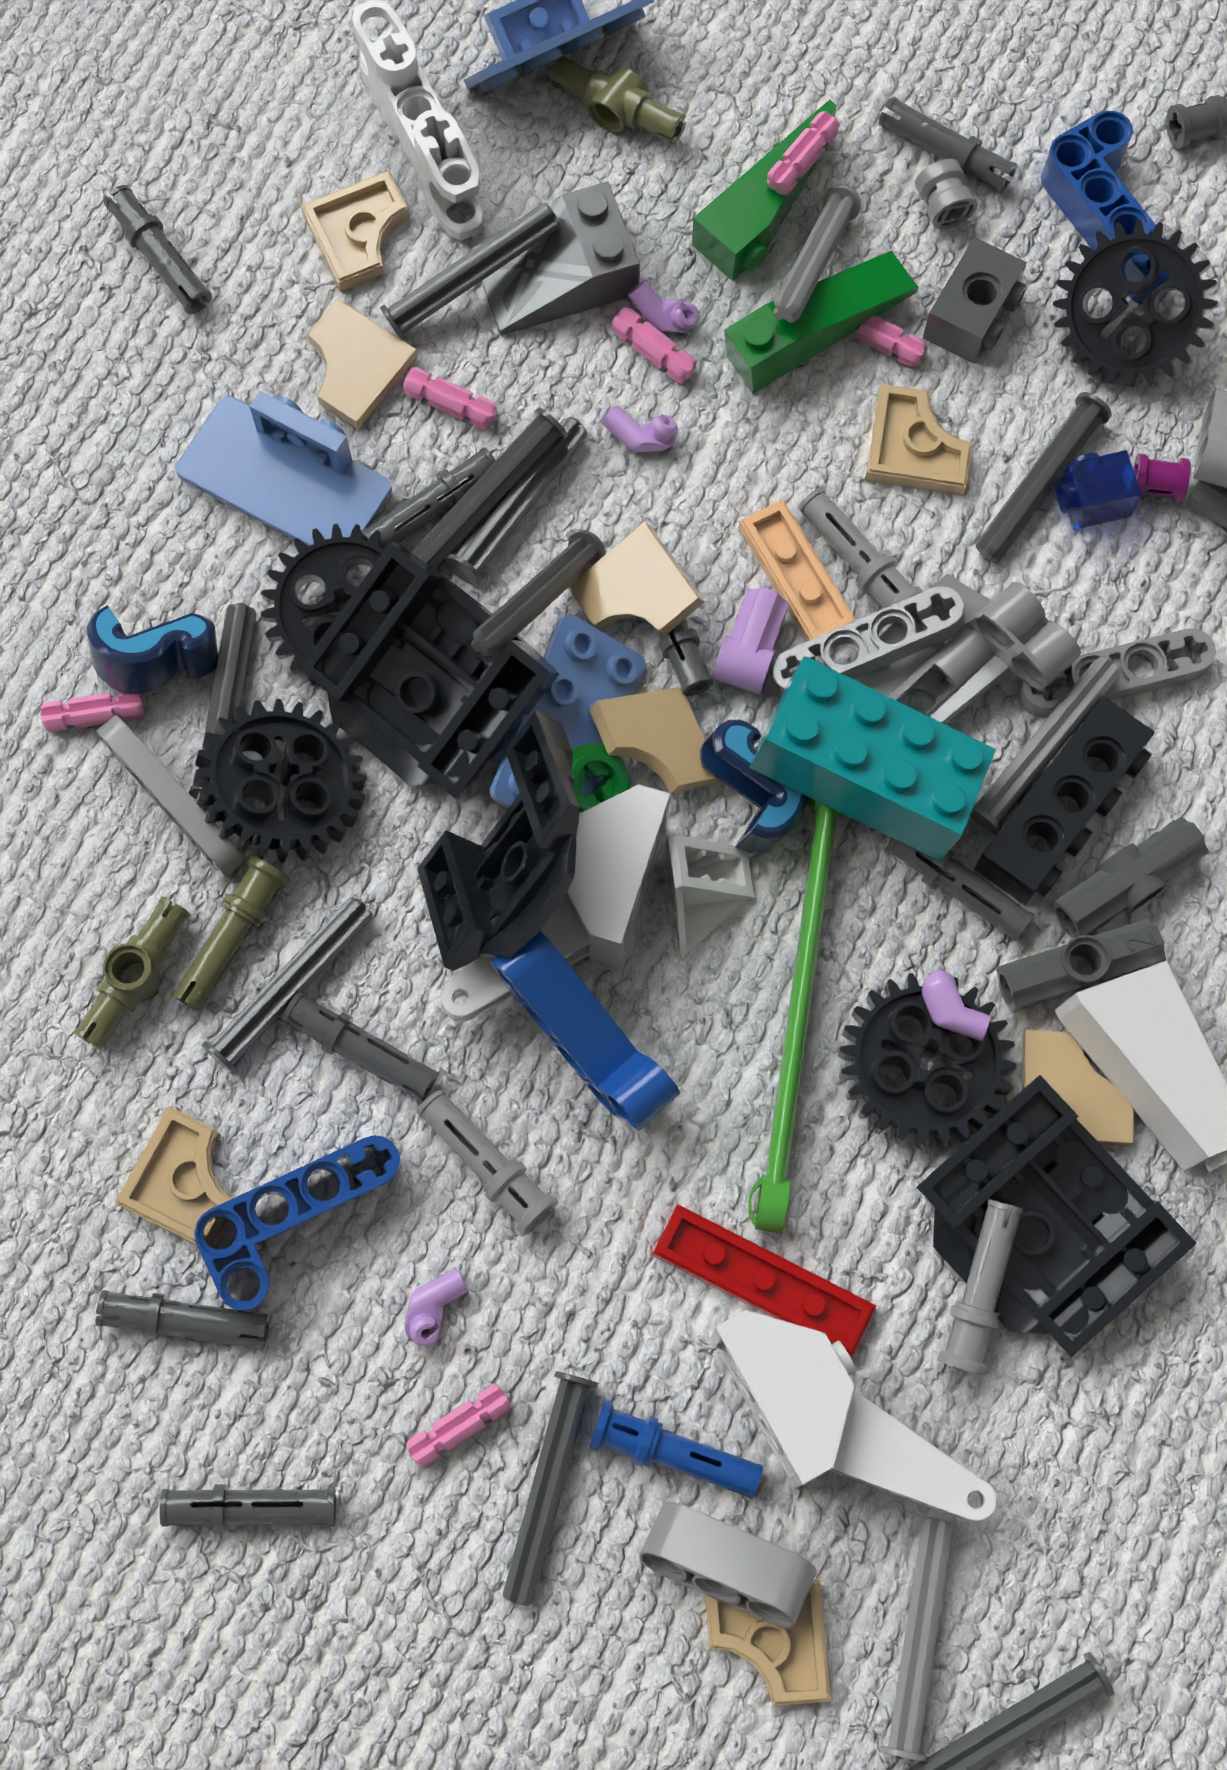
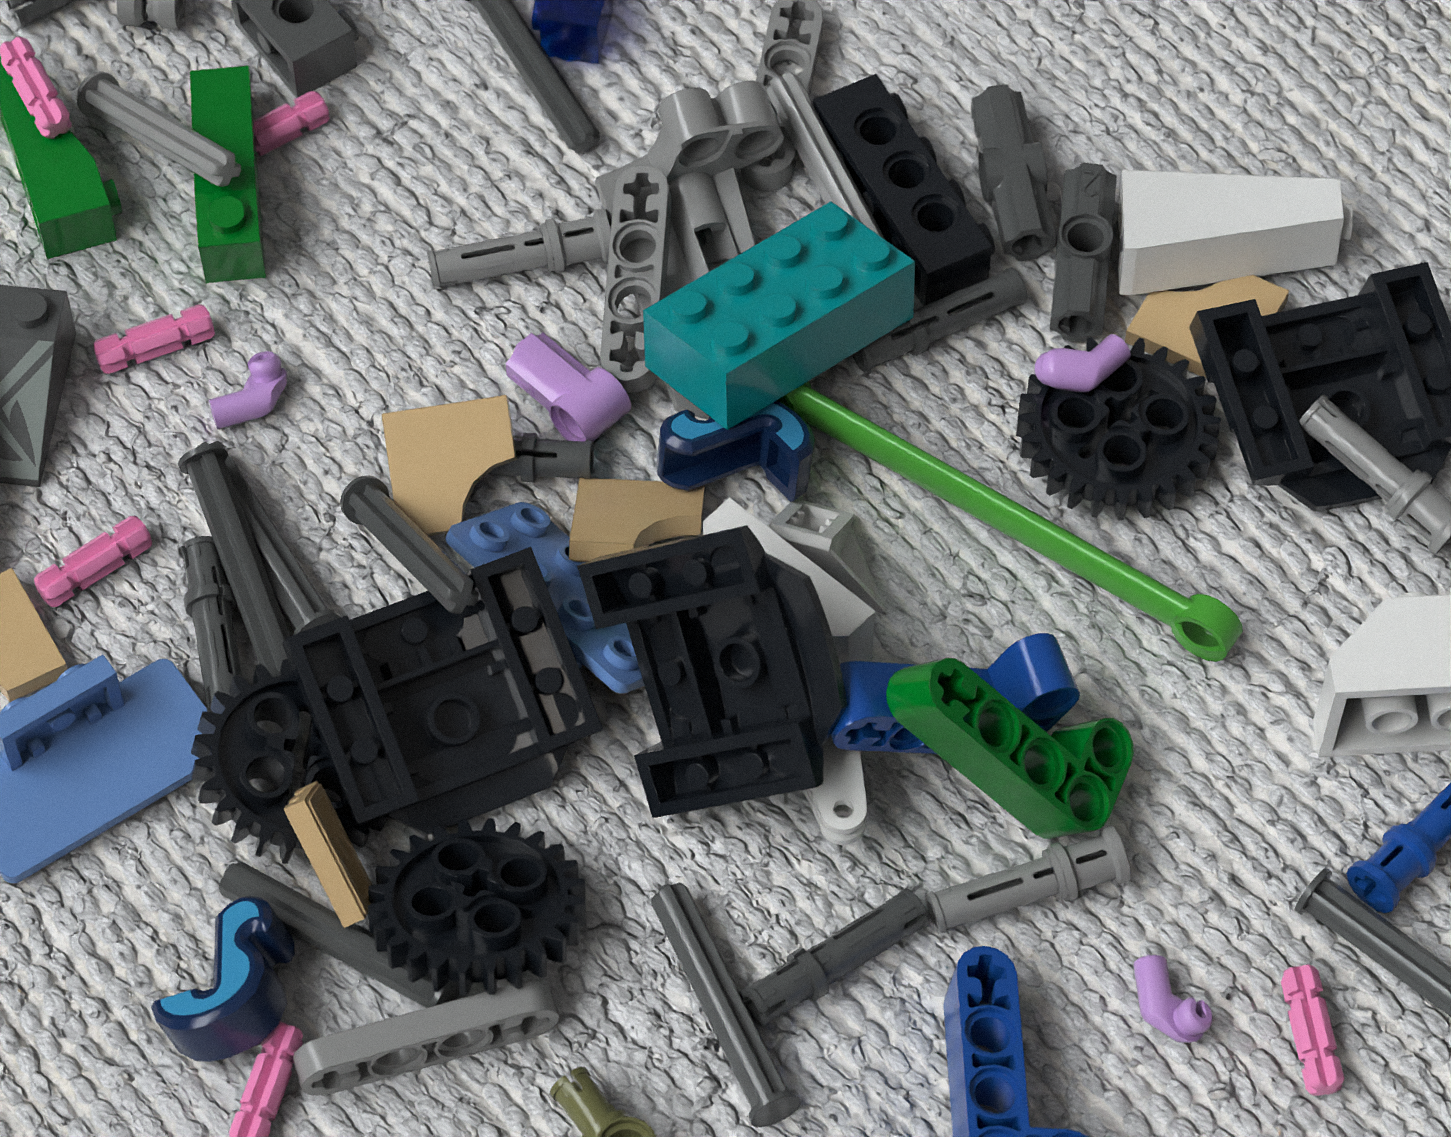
camera: 65 degrees left, 15 degrees down
(242, 912) = (612, 1016): olive pin -> none
(259, 660) = (330, 852): none -> tan tile
(558, 1089) = (1044, 781): none -> green beam
(663, 314) = (125, 310): lavender arm -> none
(762, 1278) = (1266, 684): red tile -> none
(795, 570) = (500, 319): light nougat tile -> none
(912, 447) = (422, 158): tan tile -> none

